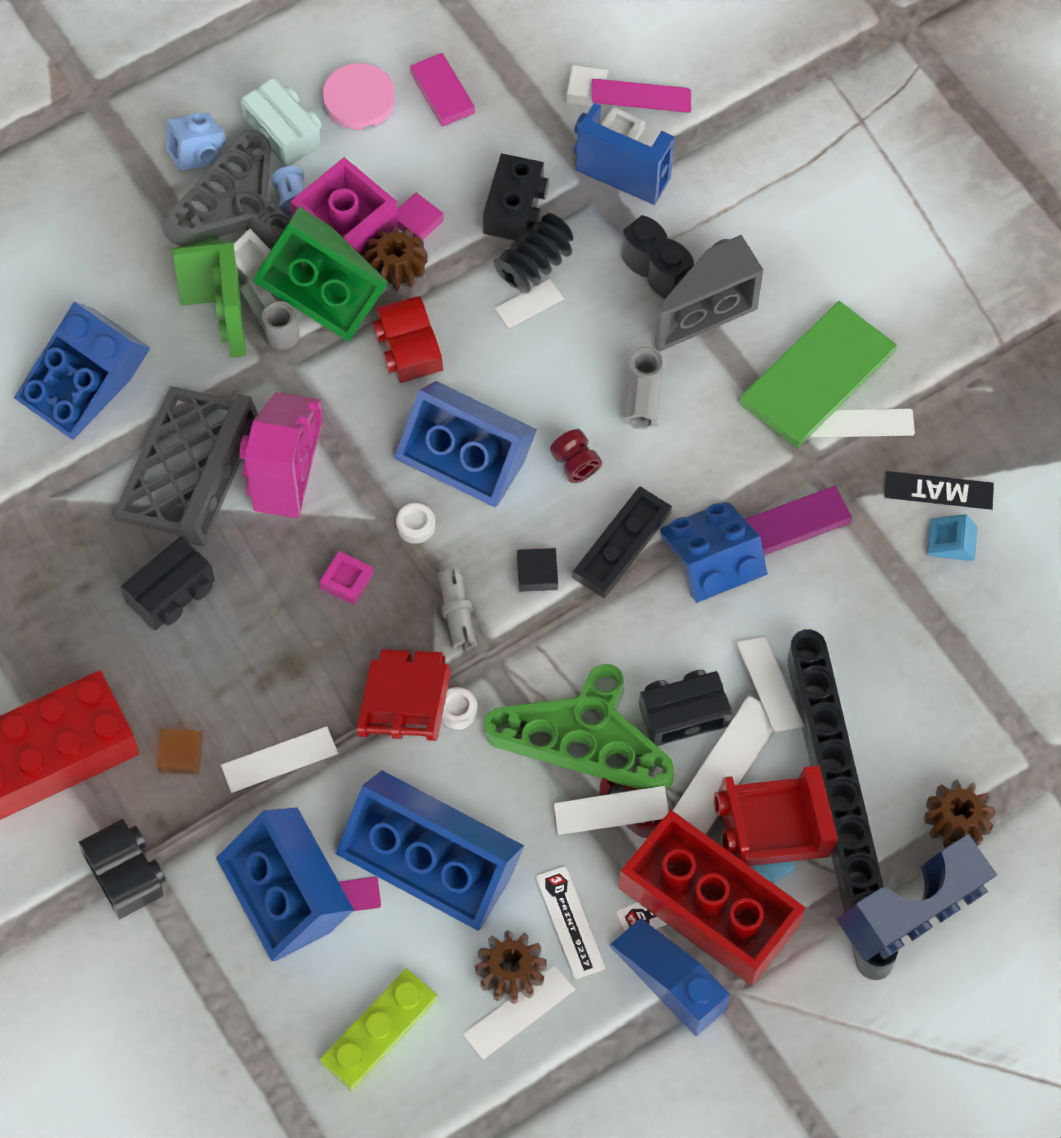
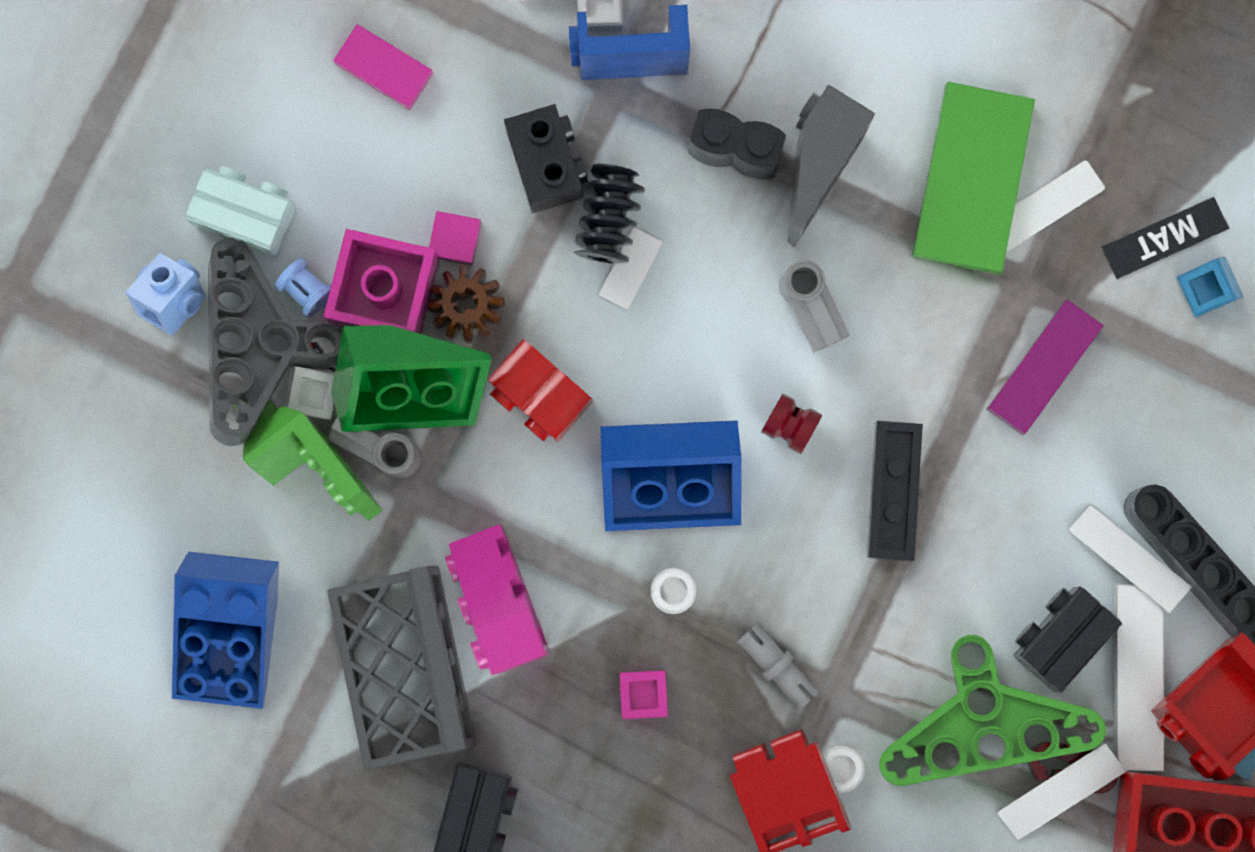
camera: 30 degrees left, 20 degrees up
(359, 96) = (300, 127): bright pink tile -> none
(537, 569) = (826, 570): black tile -> none
(716, 550) = (989, 442): blue bracket -> none

